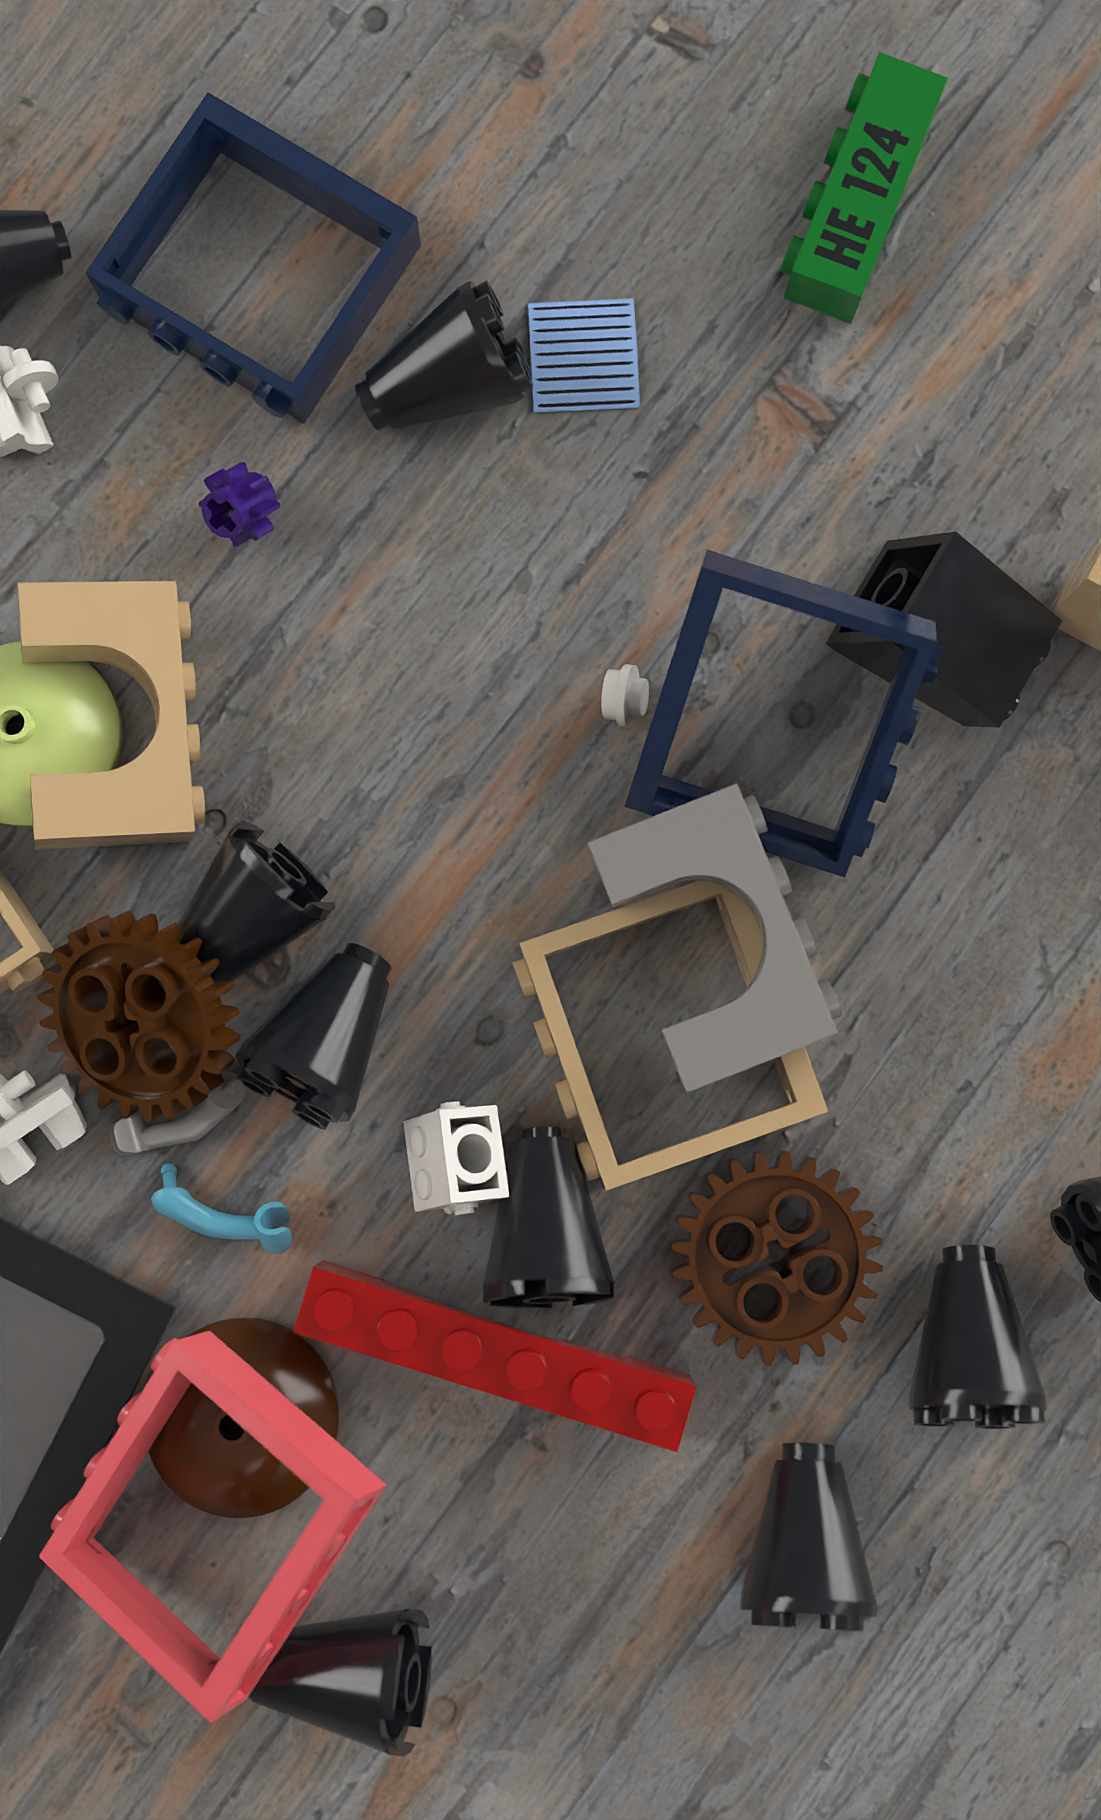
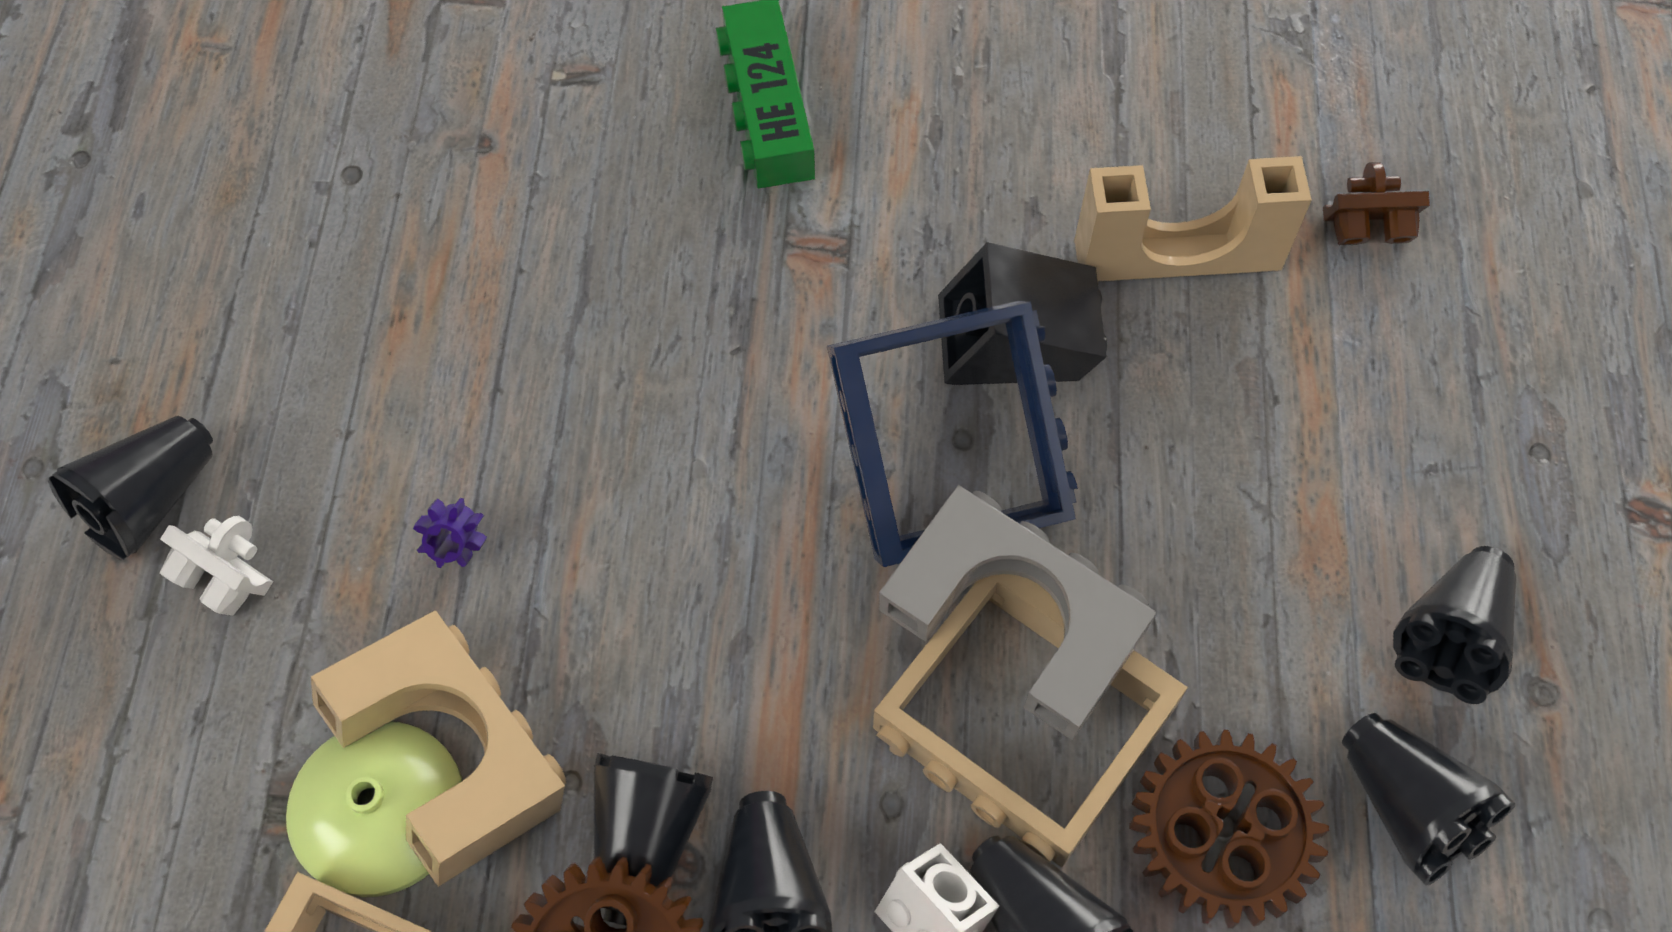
camera: 30 degrees left, 20 degrees down
(225, 130) = (345, 293): dark blue window -> none
(448, 365) = (550, 350): black cone -> none
(583, 355) = (643, 298): light blue sticker -> none
(624, 695) = (828, 496): white plate -> none

